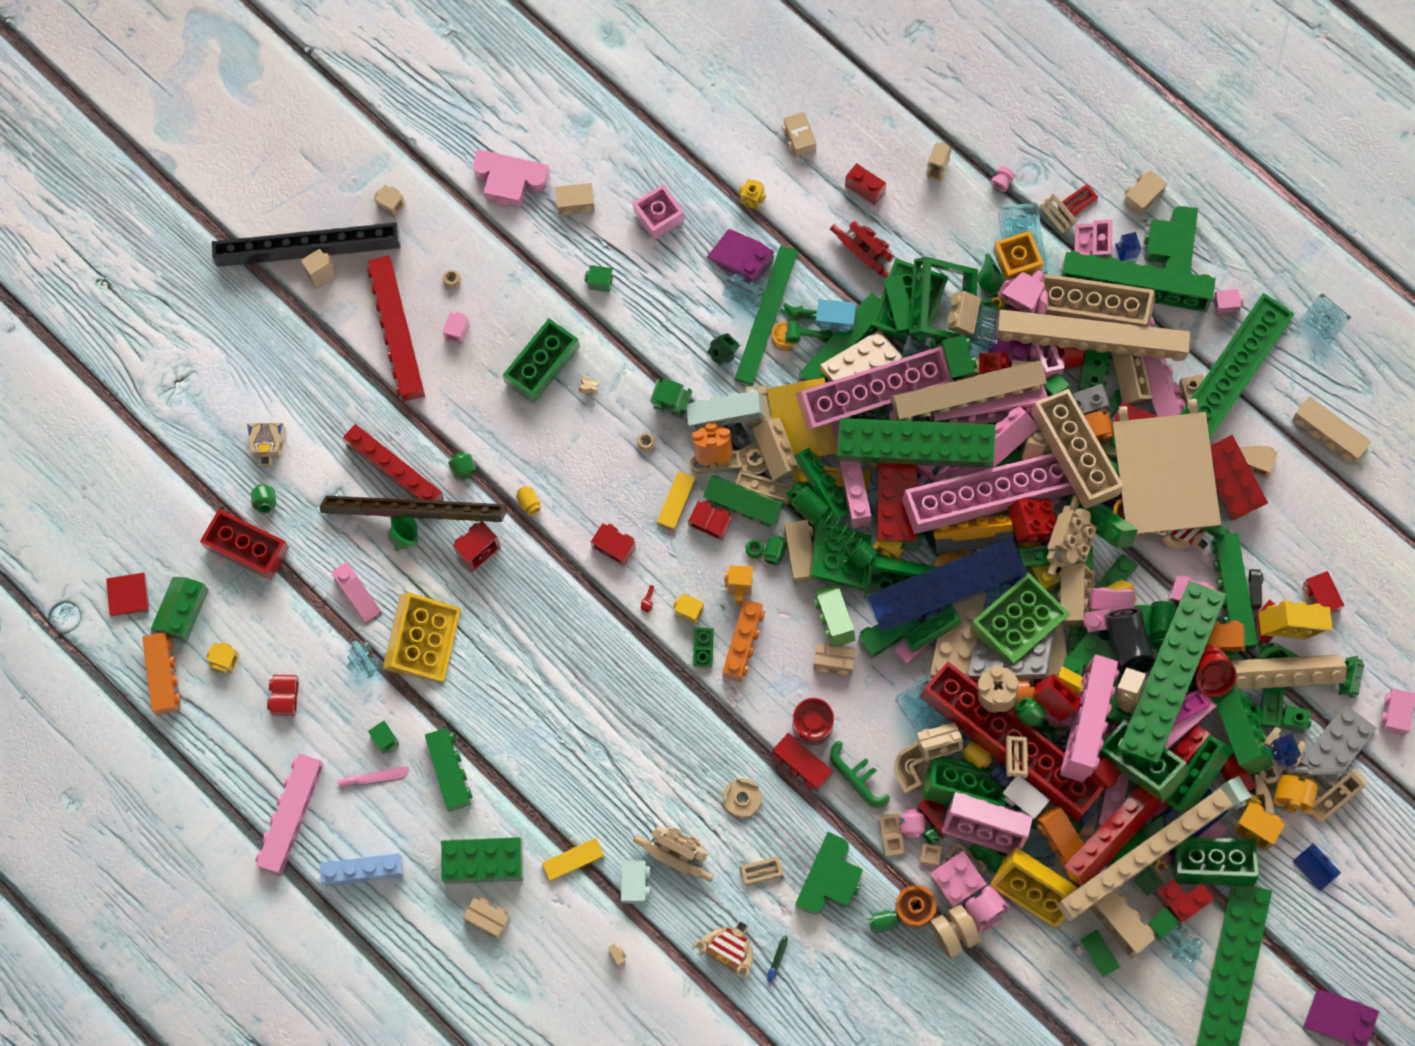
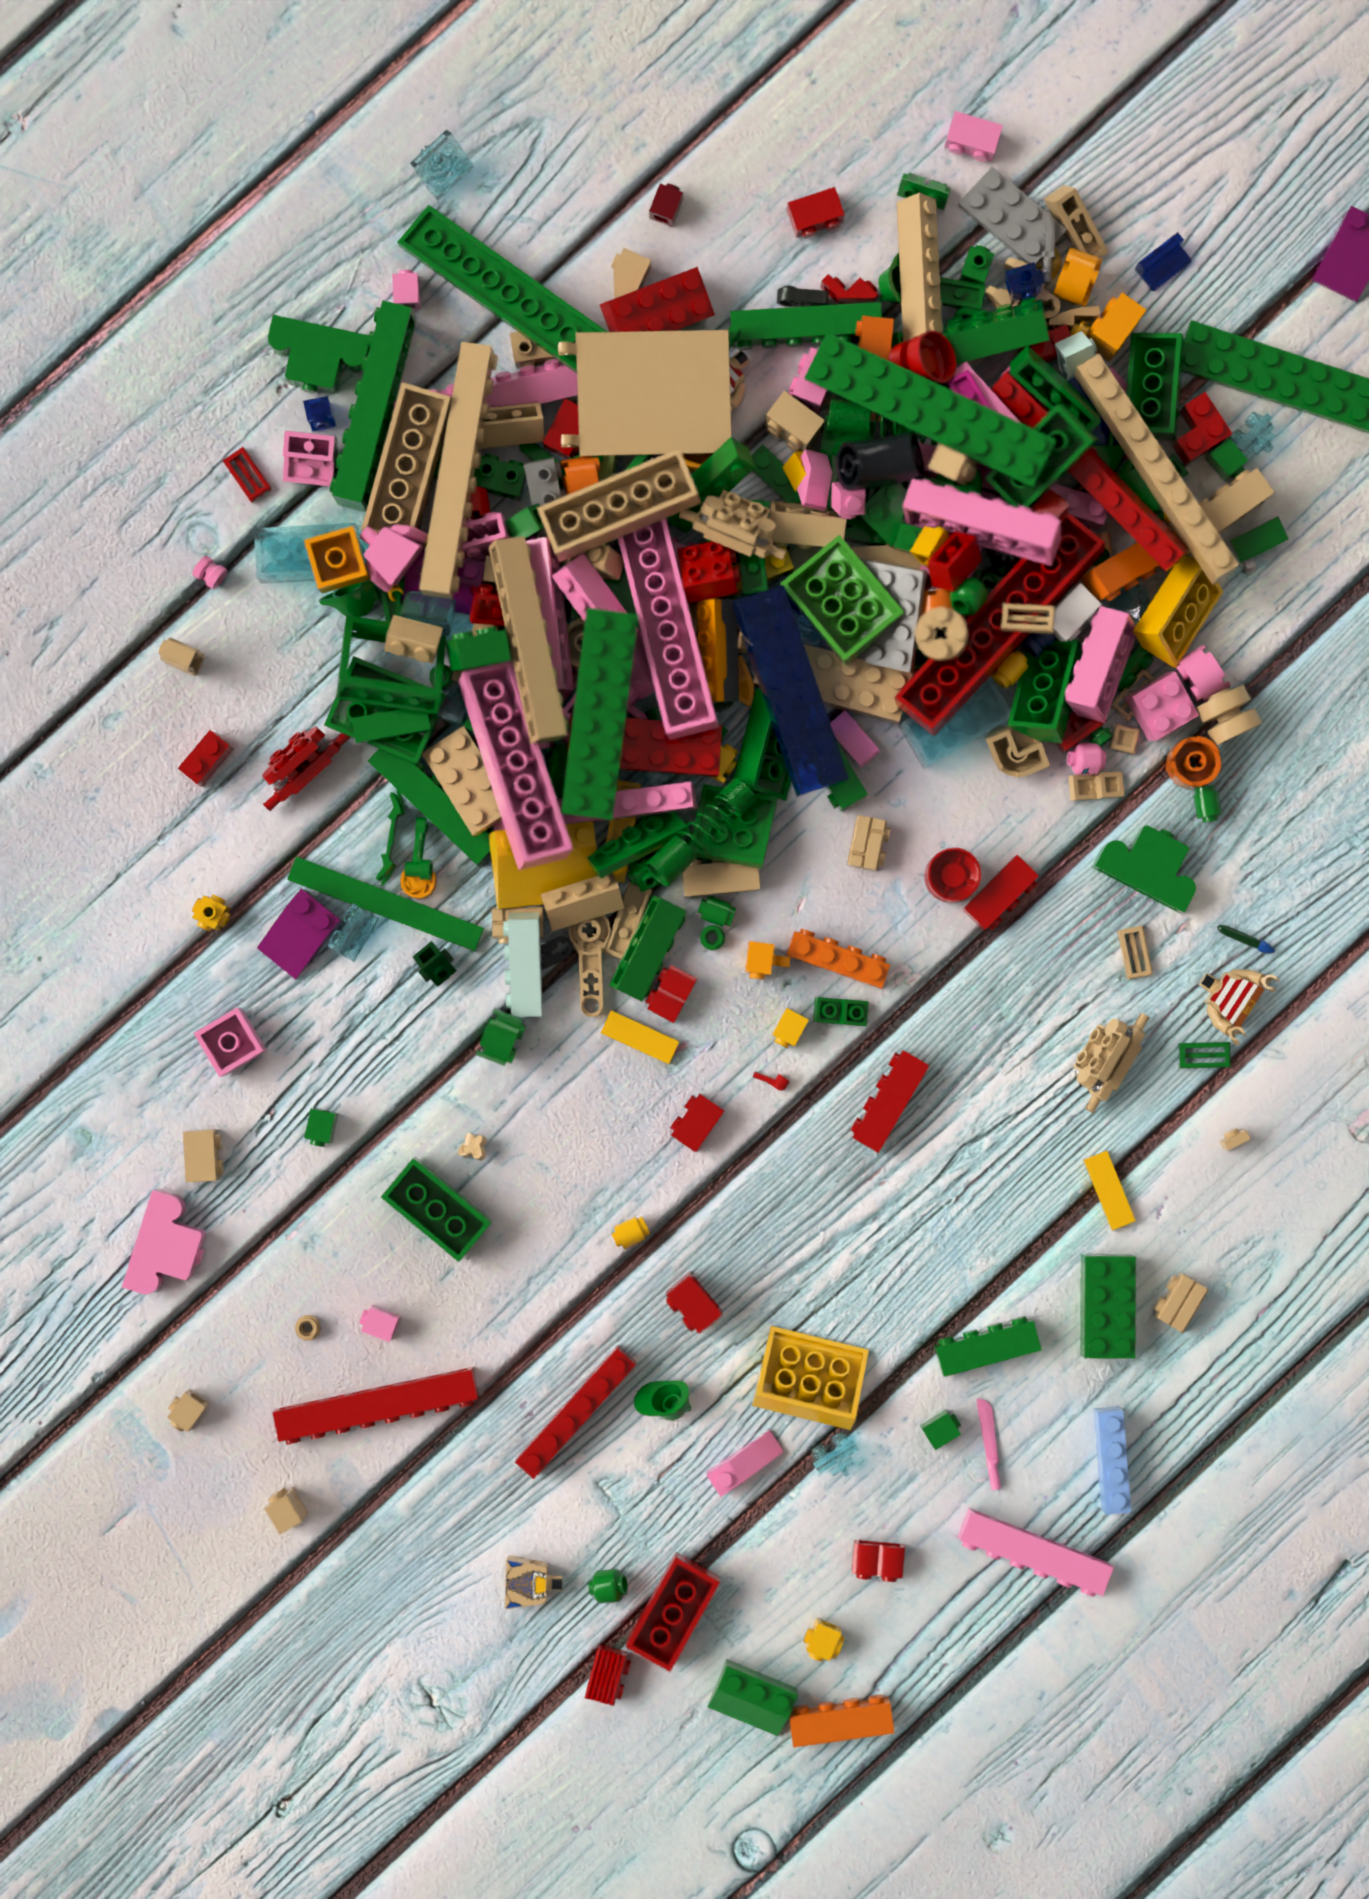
camera: 90 degrees left, 15 degrees up
(127, 594) = (728, 1767): red tile -> none
(197, 501) = (607, 1674): none -> red brick
(303, 244) = (248, 1527): black brick -> none
(413, 508) = (641, 1385): dark brown plate -> none
(462, 465) = (577, 1319): green head -> none
(634, 882) = (1143, 1113): light aqua brick -> none
(636, 684) = (889, 1101): none -> red brick
(643, 437) = (557, 1065): tan plate -> none
(684, 947) = (1182, 1055): none -> green tile
(712, 444) = (572, 985): orange brick -> none
(746, 809) = (1055, 971): tan tile -> none
(799, 134) = (125, 843): tan brick -> none
(834, 615) = (813, 839): brick -> none
(835, 315) = (401, 810): medium azure brick -> none
(854, 781) = (1031, 823): green piece -> none
(932, 628) = (841, 714): green tile -> none
(939, 741) = (994, 715): tan brick -> none
(1056, 211) = (270, 509): tan tile -> none
(1144, 192) = (242, 384): tan brick -> none
(1156, 582) = (793, 423): none -> tan brick
(1295, 620) = (856, 250): yellow brick -> none
(1316, 484) = (666, 204): none -> dark red brick
(1331, 430) = (594, 175): tan brick -> none

